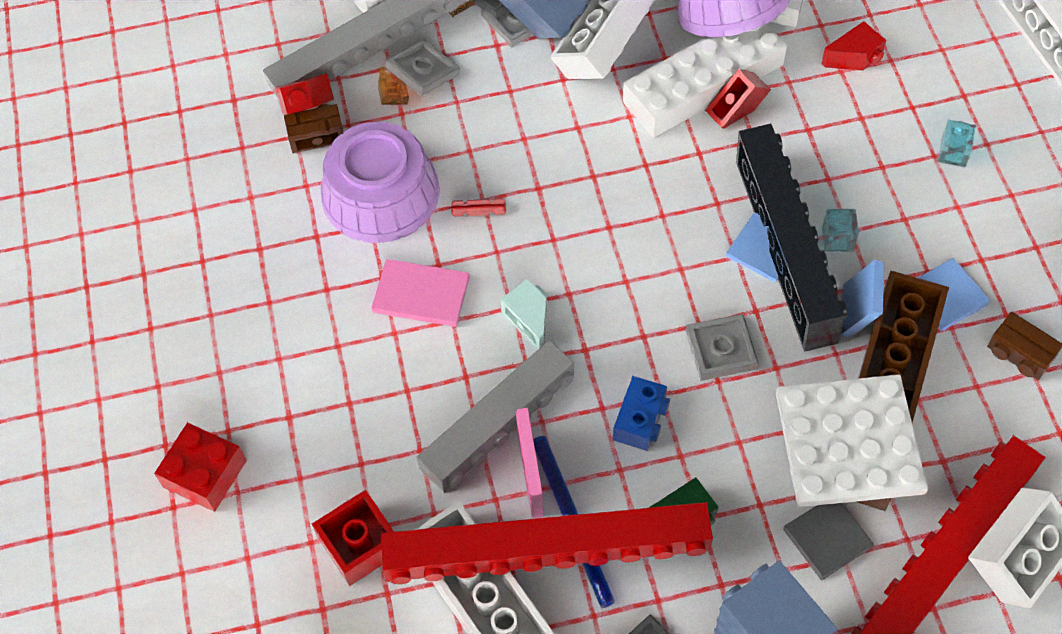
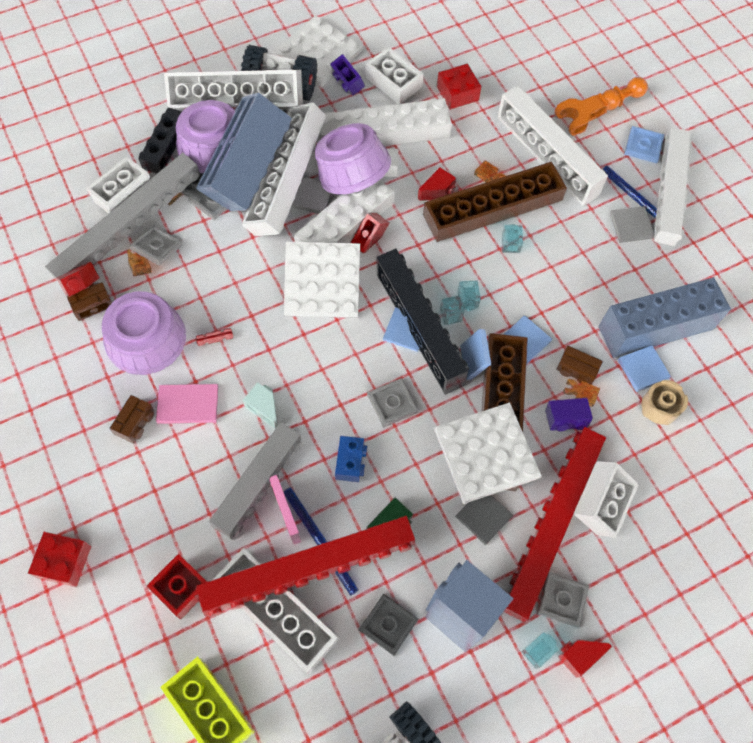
camera: 20 degrees left, 5 degrees up
(339, 298) = (132, 419): none -> reddish brown brick
(652, 153) = (322, 279): none -> white plate
(660, 34) = (311, 196): none -> light grey tile
(872, 213) = (469, 294): none -> clear light blue brick
(940, 83) = (494, 201): none -> reddish brown brick
(941, 42) = (487, 172): none -> clear orange plate
(992, 413) = (568, 414): none -> dark purple brick
(1024, 388) = (583, 390): none -> clear orange plate

